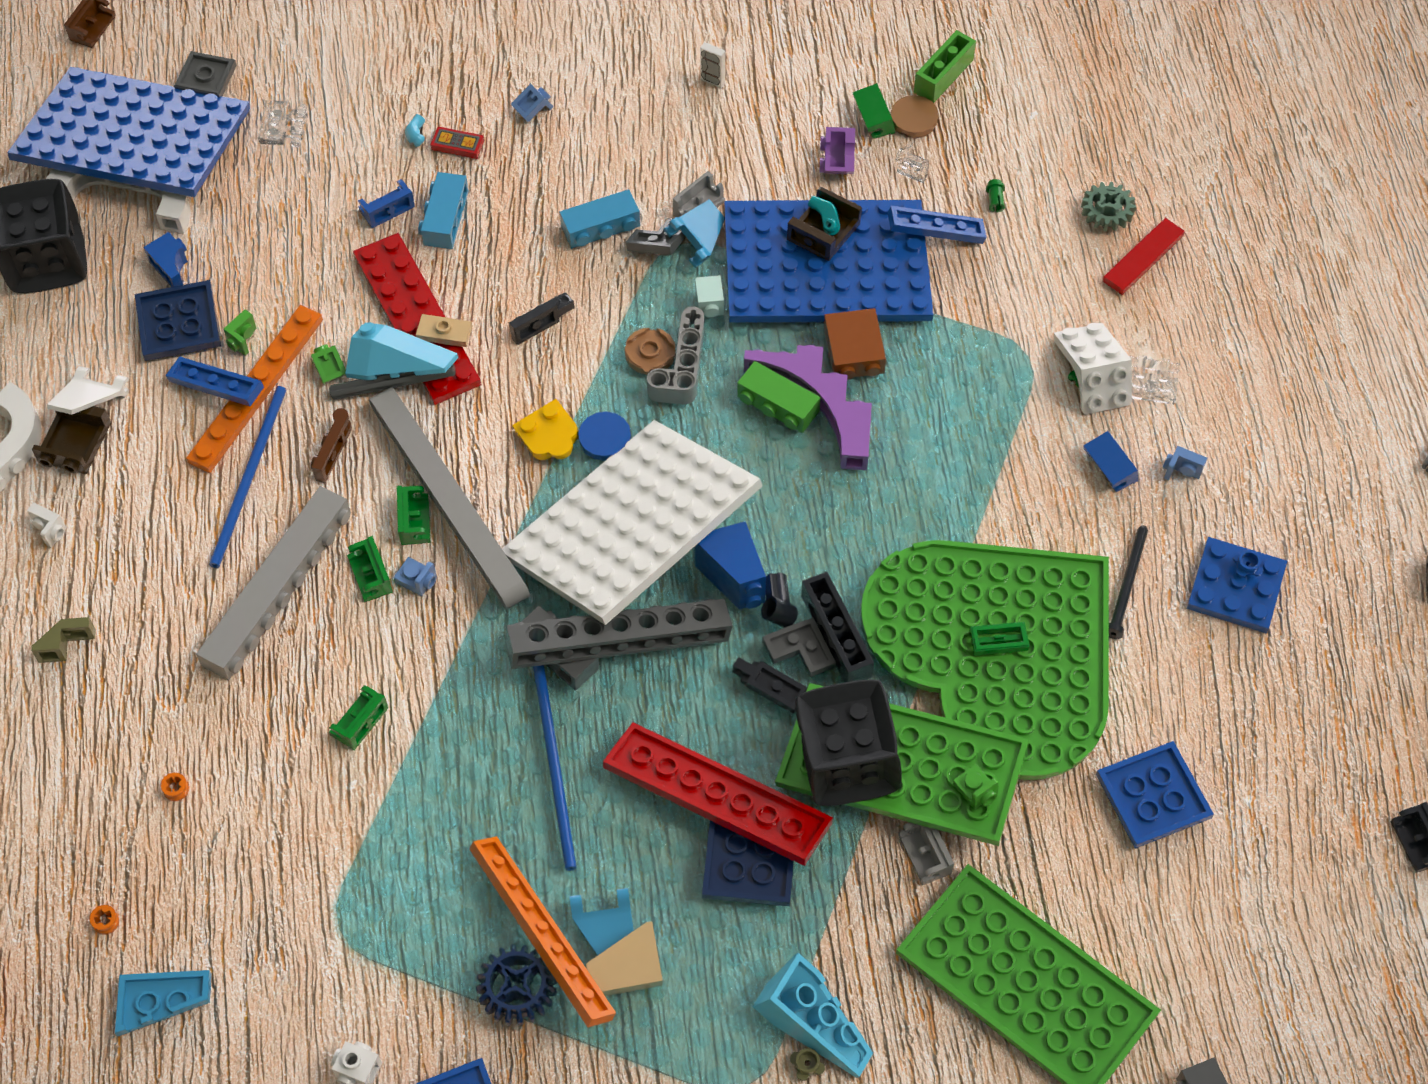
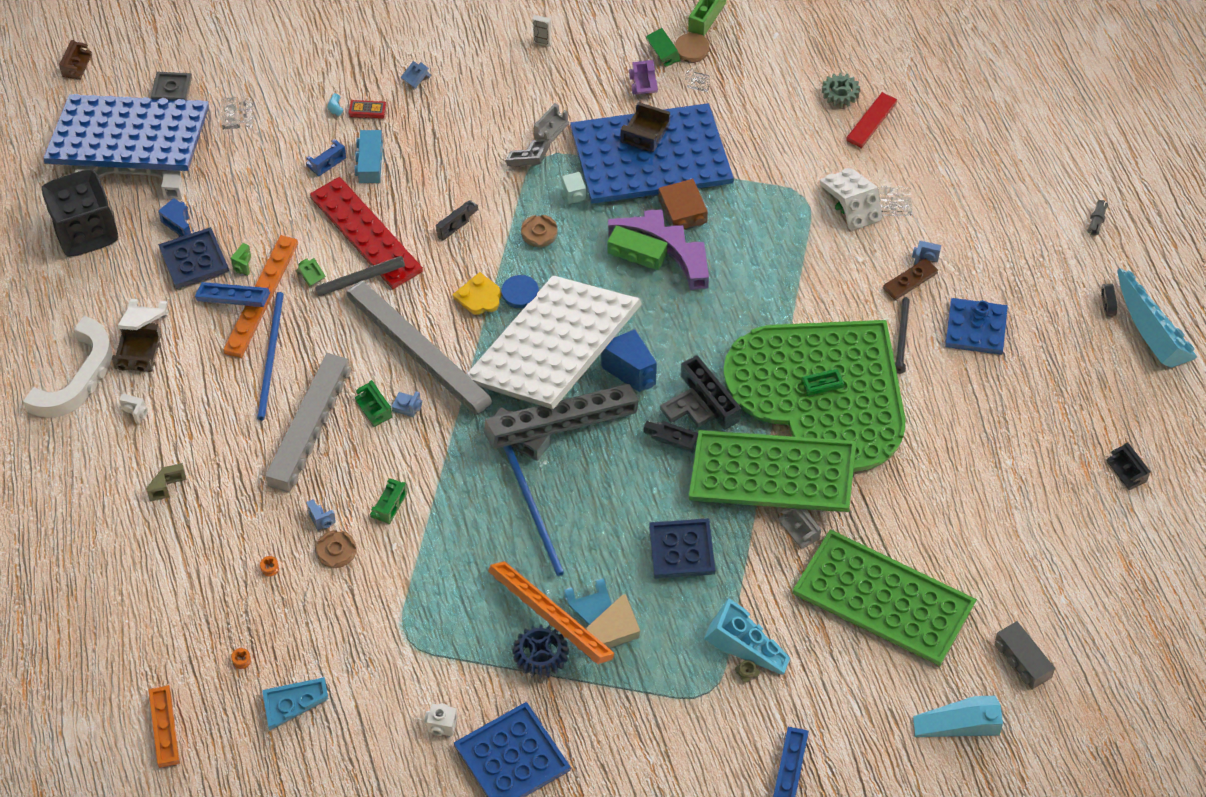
camera: 10 degrees left, 5 degrees down
(258, 727) = (319, 518): none -> medium blue bracket
(271, 776) = (336, 549): none -> medium nougat tile
(331, 445) = (326, 325): reddish brown plate -> none
(385, 350) = (353, 255): medium azure wedge -> none
(413, 515) = (395, 364): green hinge -> none
(444, 330) = (390, 237): tan plate -> none
(600, 219) = (483, 147): dark azure brick -> none
(681, 376) = (566, 248): light grey beam -> none
(701, 228) = (558, 143): flag -> none
(718, 793) = (651, 508): red plate -> none
(777, 603) = (666, 383): black piece -> none
(828, 212) = (646, 118): teal arm -> none
(848, 742) = (736, 458): black piece -> none
(936, 224) = (723, 117): blue plate -> none
(976, 787) = (827, 476): bright green bracket -> none
(995, 191) = (760, 91): green pin -> none
(1112, 461) = (876, 257): blue hinge -> none
(1154, 794) = (946, 467): blue plate -> none
(1155, 499) = (910, 279): none -> reddish brown plate

